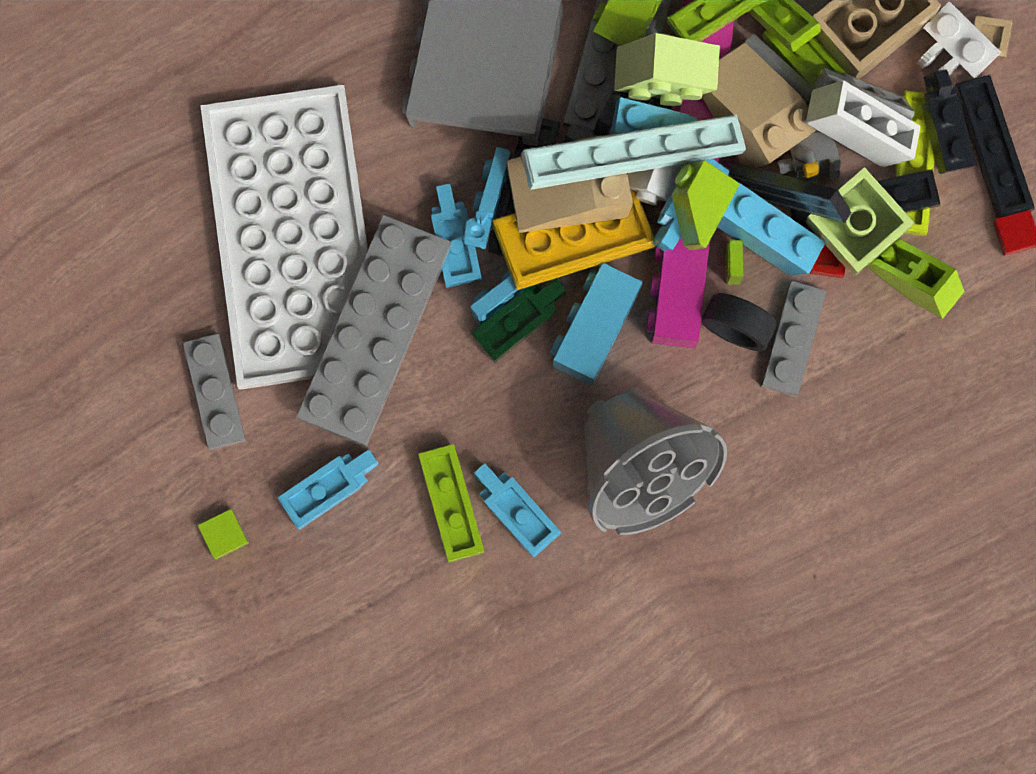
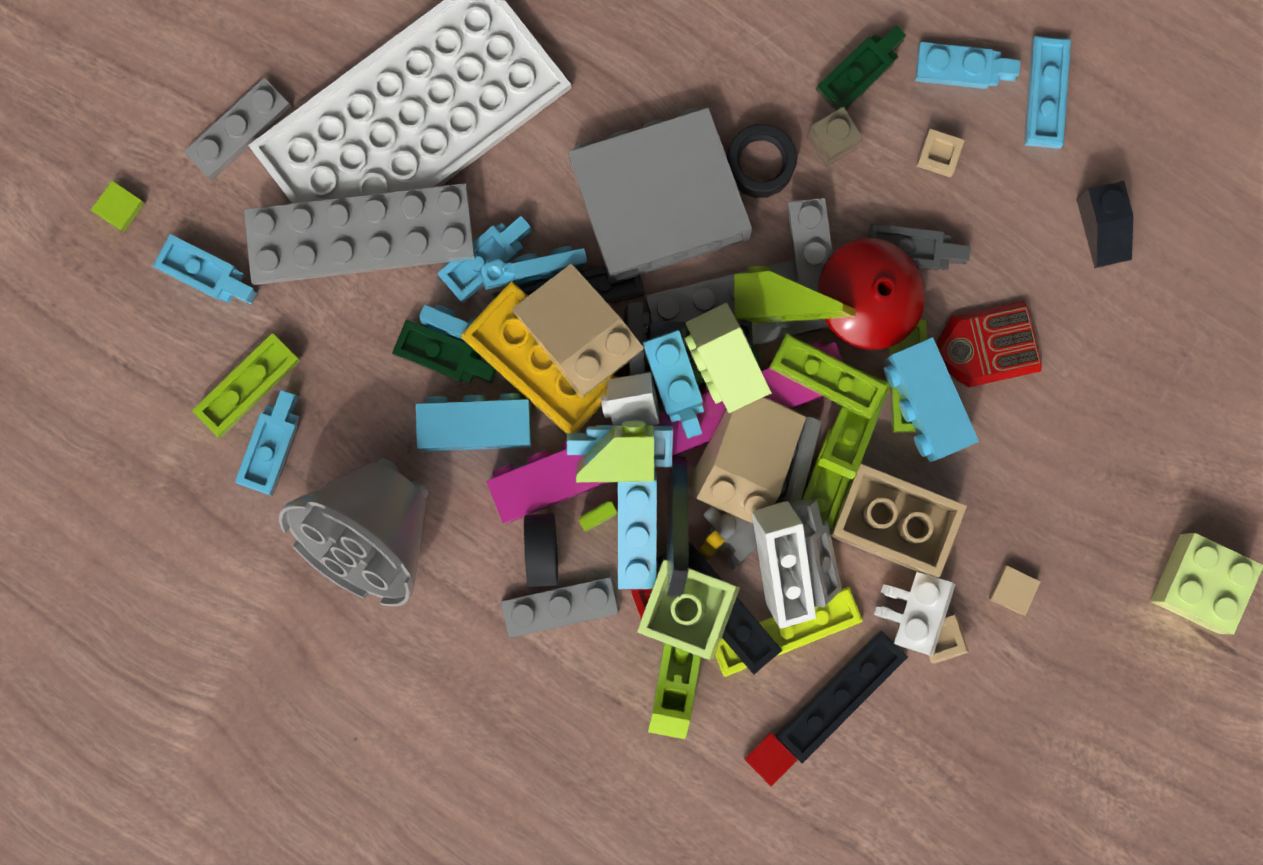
camera: 60 degrees right, 5 degrees up
(632, 151) = (629, 369): light aqua tile -> none
(946, 124) = (834, 642): black hinge -> none

